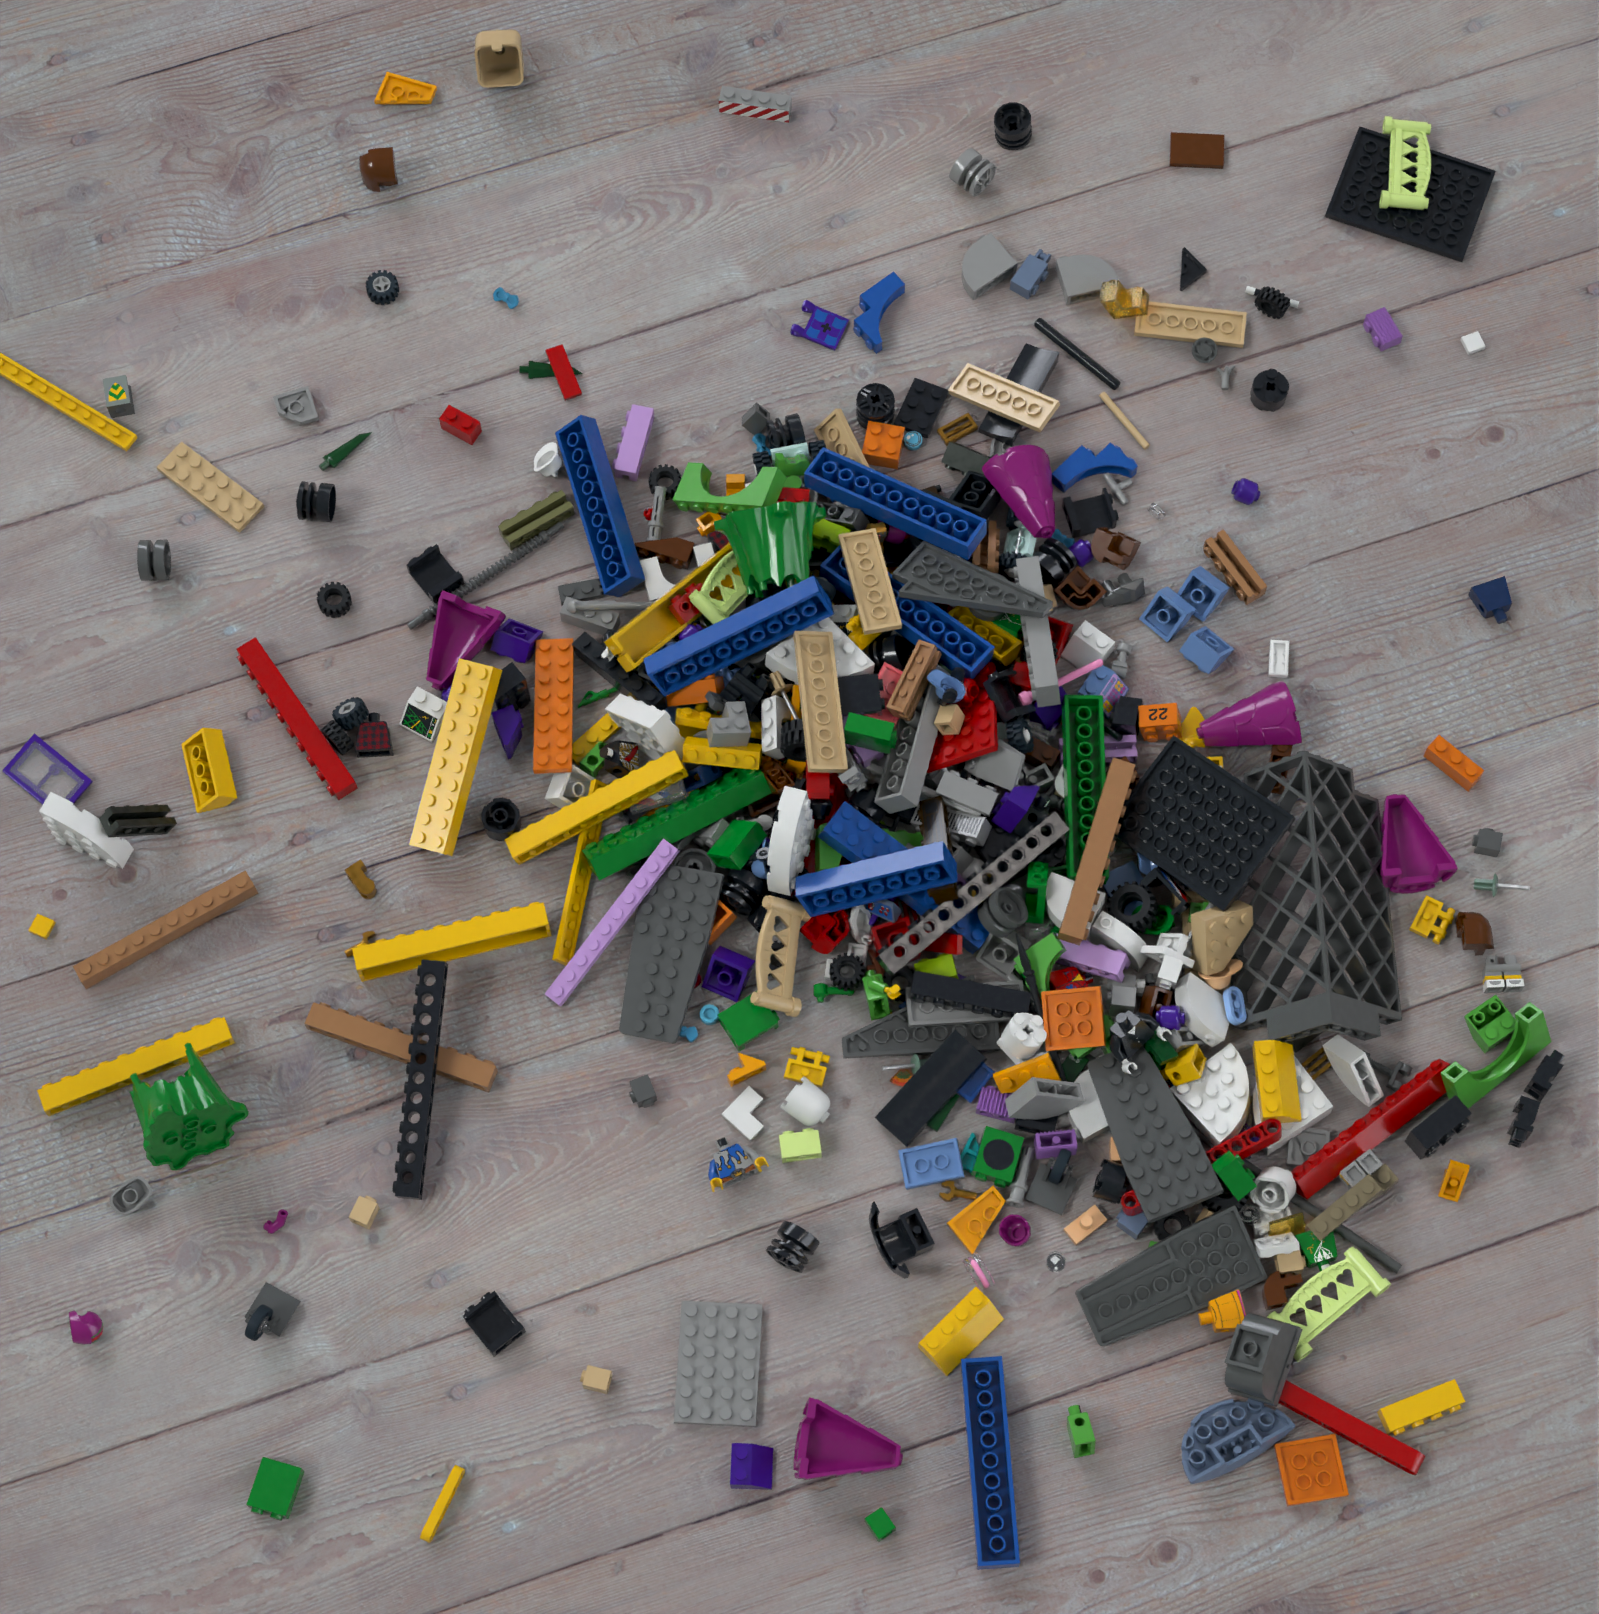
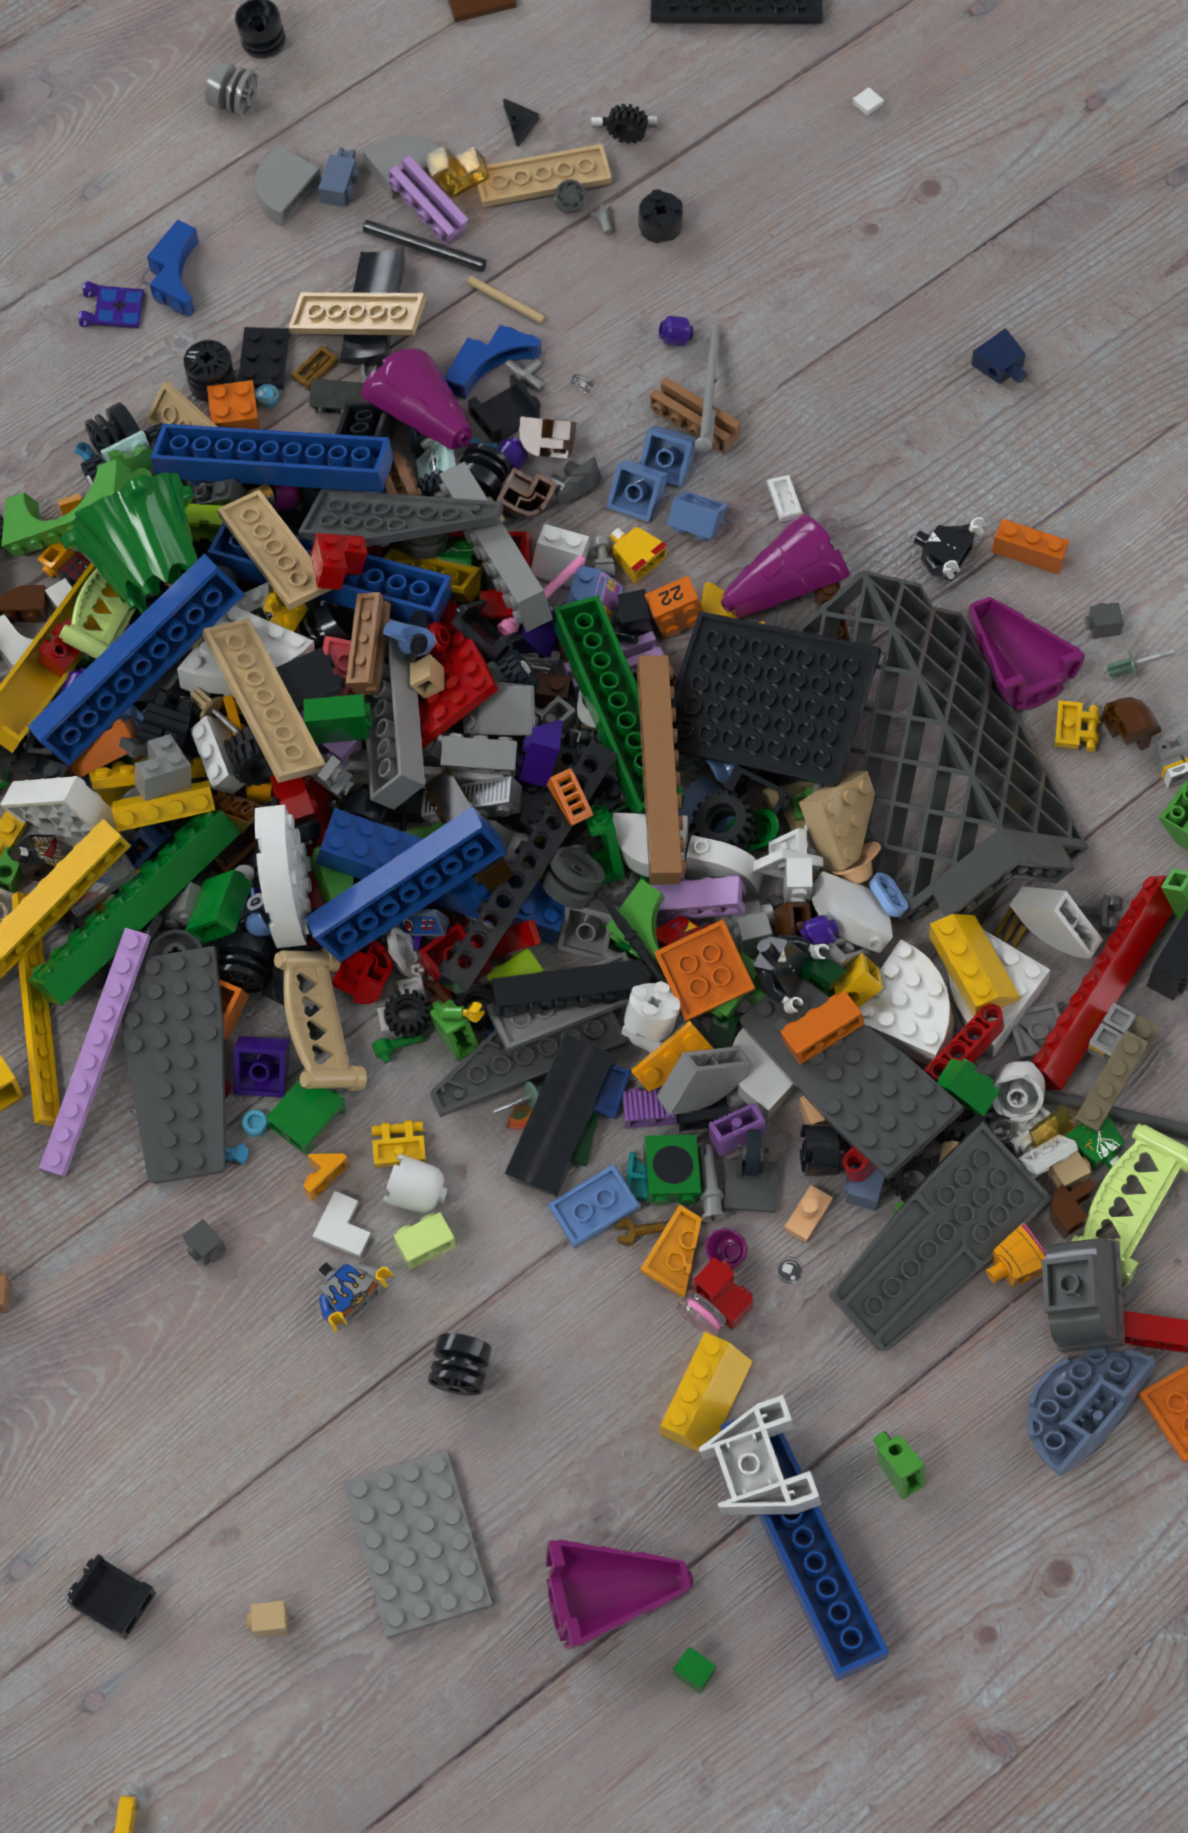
camera: 20 degrees left, 5 degrees down
(751, 1466) = (505, 1657): dark purple slope -> none
(755, 419) = (70, 428): dark grey panel -> none
(900, 1239) = (591, 1308): black piece -> none
(912, 605) = (336, 556): none -> red brick
(971, 1397) = (752, 1466): none -> white wedge
(997, 1259) = (718, 1287): none -> red brick
(1028, 851) = (577, 793): none -> orange slope
(1092, 318) = (427, 200): none -> lavender brick
(1143, 1092) = (822, 1027): none -> orange brick
(1148, 665) = (637, 552): none -> yellow torso
(1231, 596) = (704, 443): none -> light grey bar
(1382, 329) = (762, 116): medium lavender brick -> none
(1388, 742) = (948, 547): none -> black torso

